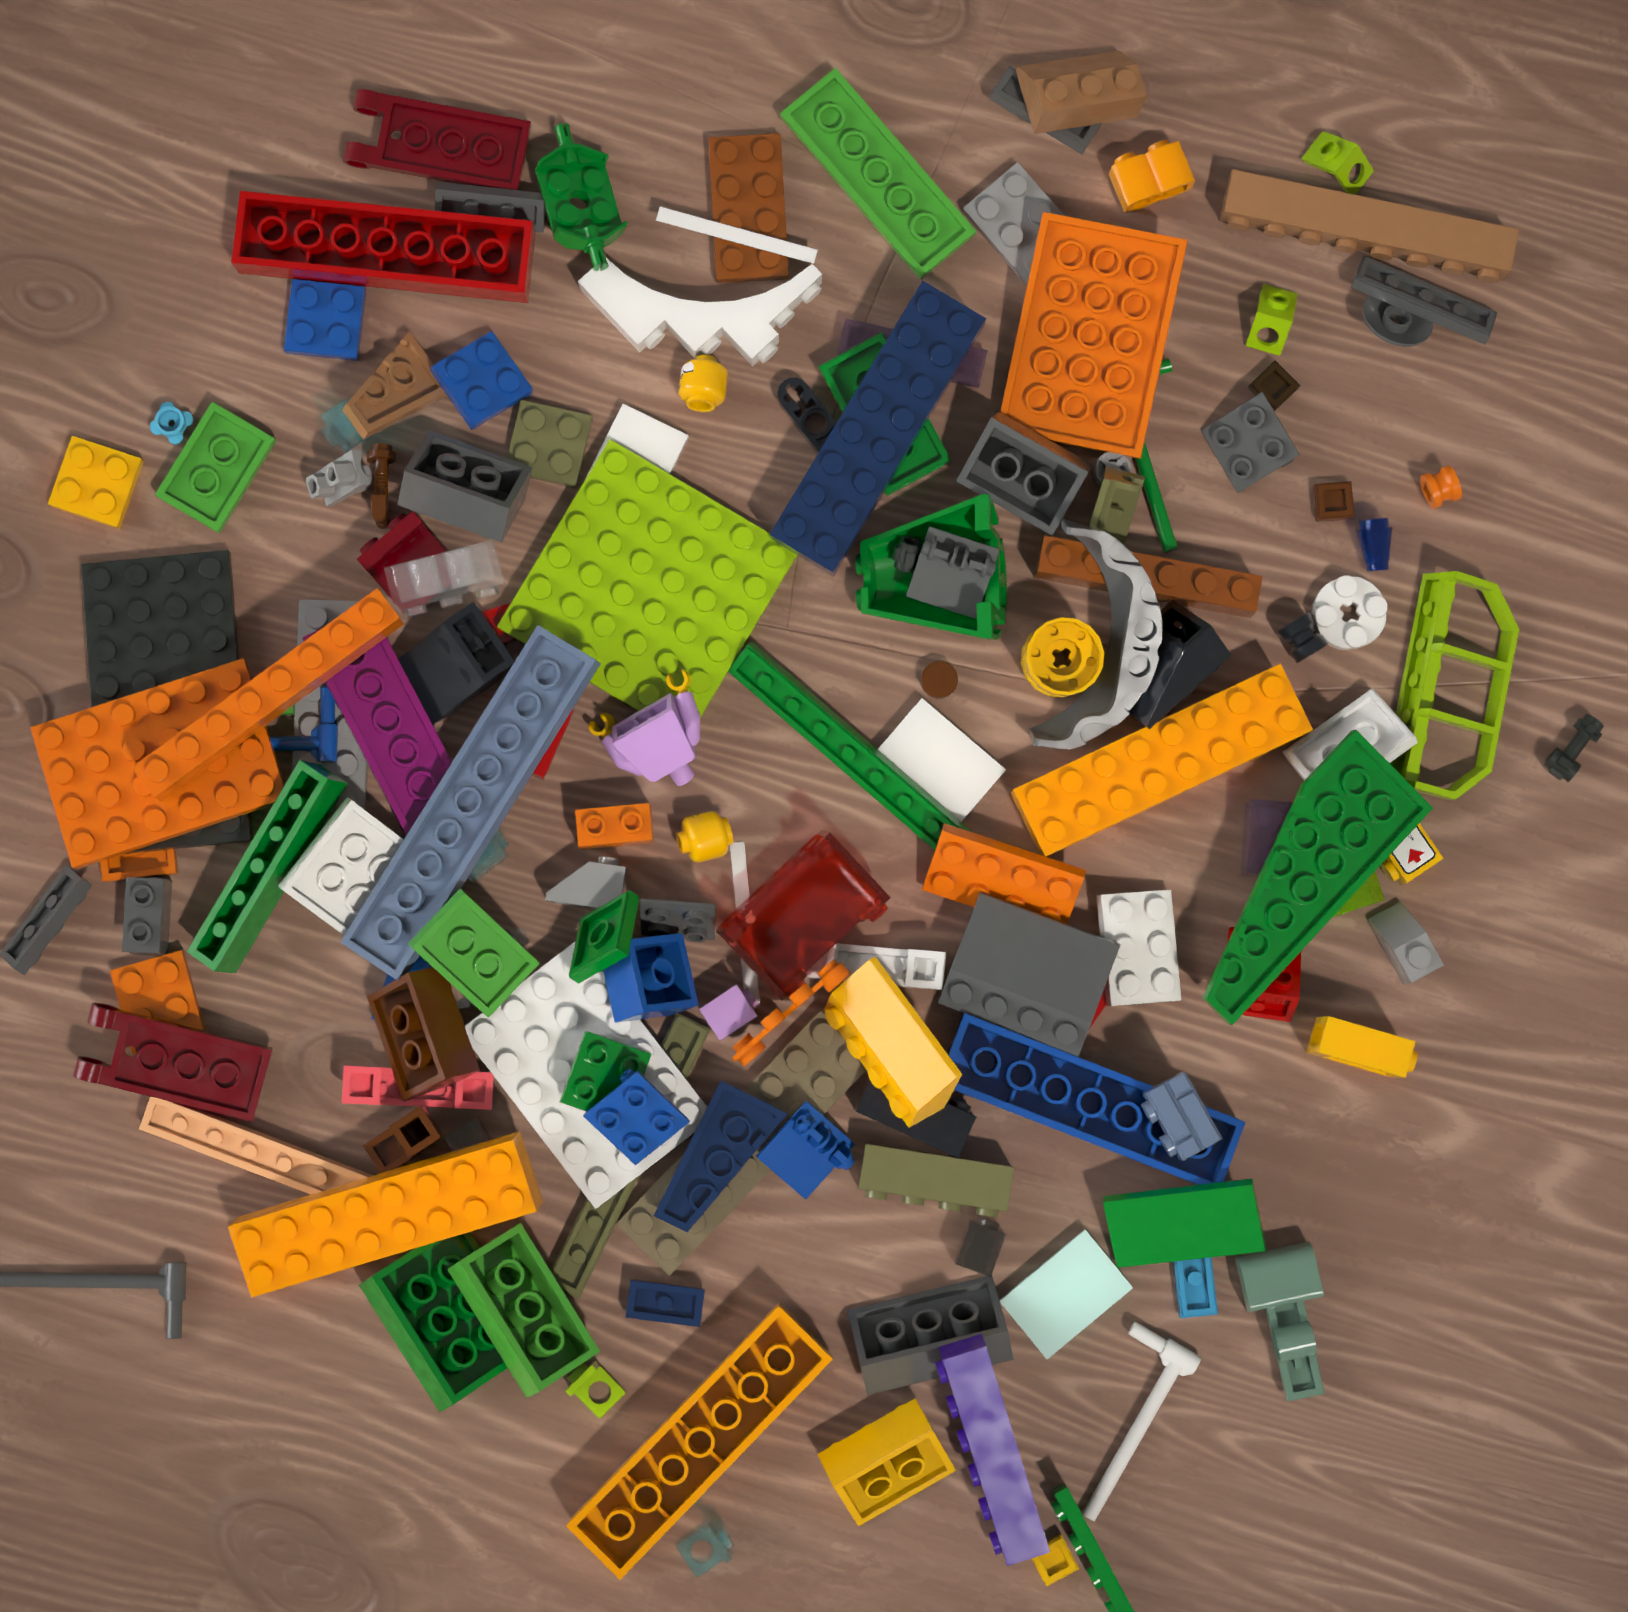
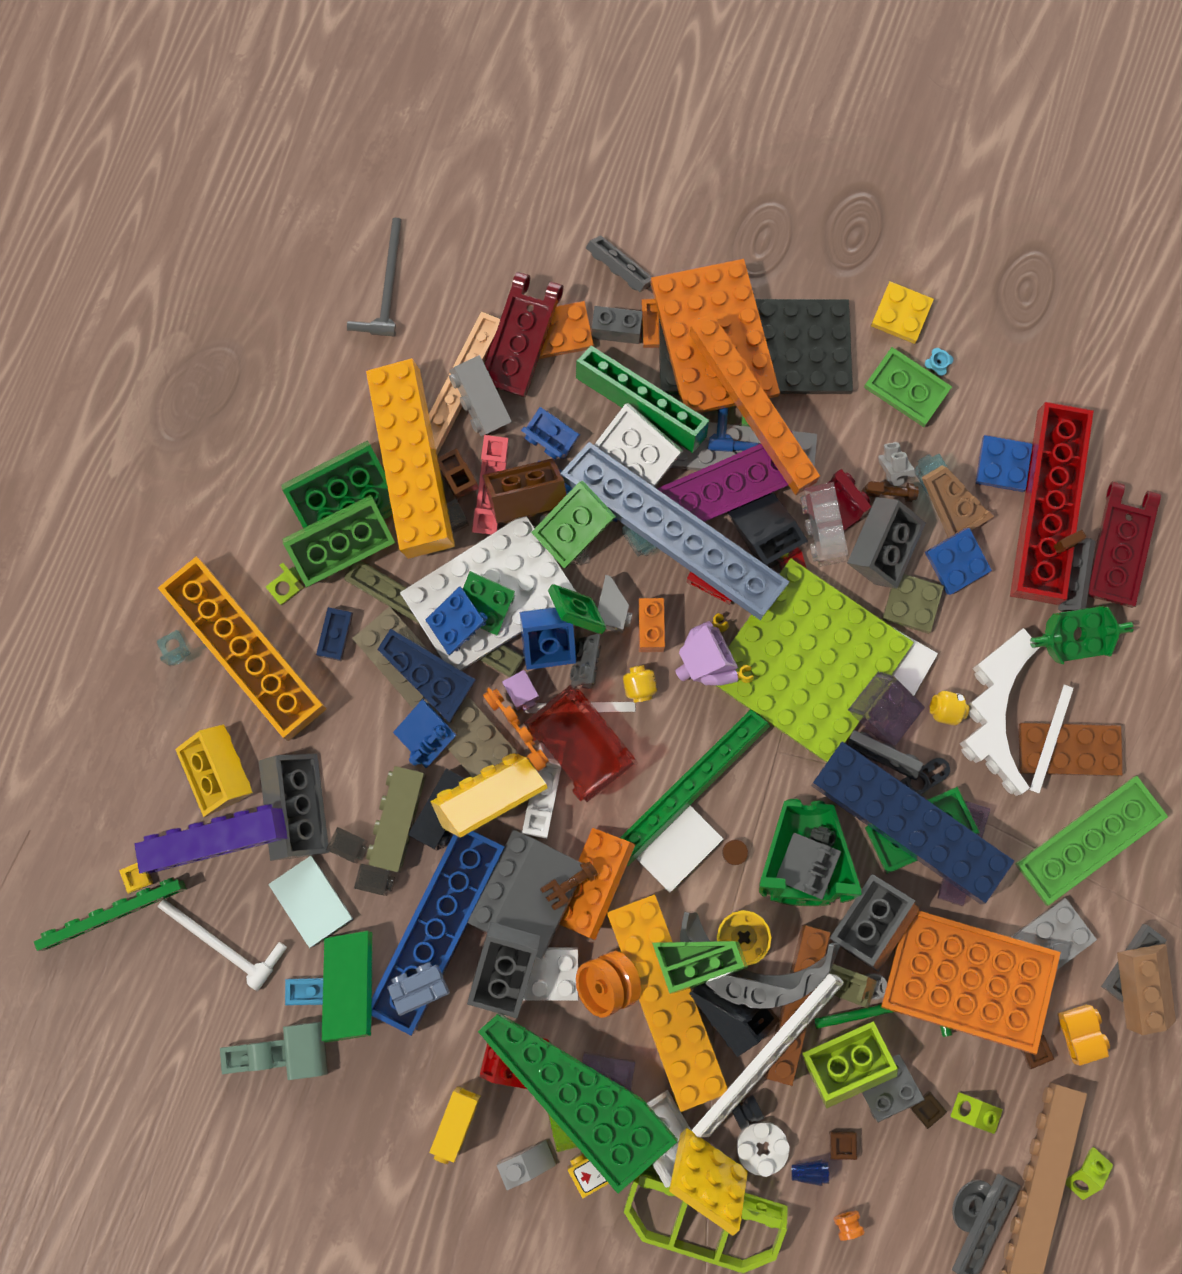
camera: 100 degrees right, 5 degrees down
(279, 1117) = (479, 396): none -> light grey brick
(329, 1003) = (551, 434): none -> blue bracket
(447, 218) = (1070, 541): none -> reddish brown tile
(713, 473) = (886, 708): none -> clear purple brick
(780, 471) = (885, 754): none -> dark grey plate
(1021, 926) = (559, 891): none -> reddish brown hinge
(1027, 1202) = (374, 880): none -> clear smoke brick
(1107, 718) = (696, 963): none -> bright green wedge
(1142, 995) = (503, 970): none -> dark grey brick
(1146, 846) = (608, 984): none -> orange wheel
(1185, 229) = (1043, 1055): none -> reddish brown tile
(1224, 497) = (850, 1064): none -> lime brick
(1225, 610) = (768, 1056): none -> white tile
(1403, 682) = (709, 1181): none -> yellow plate

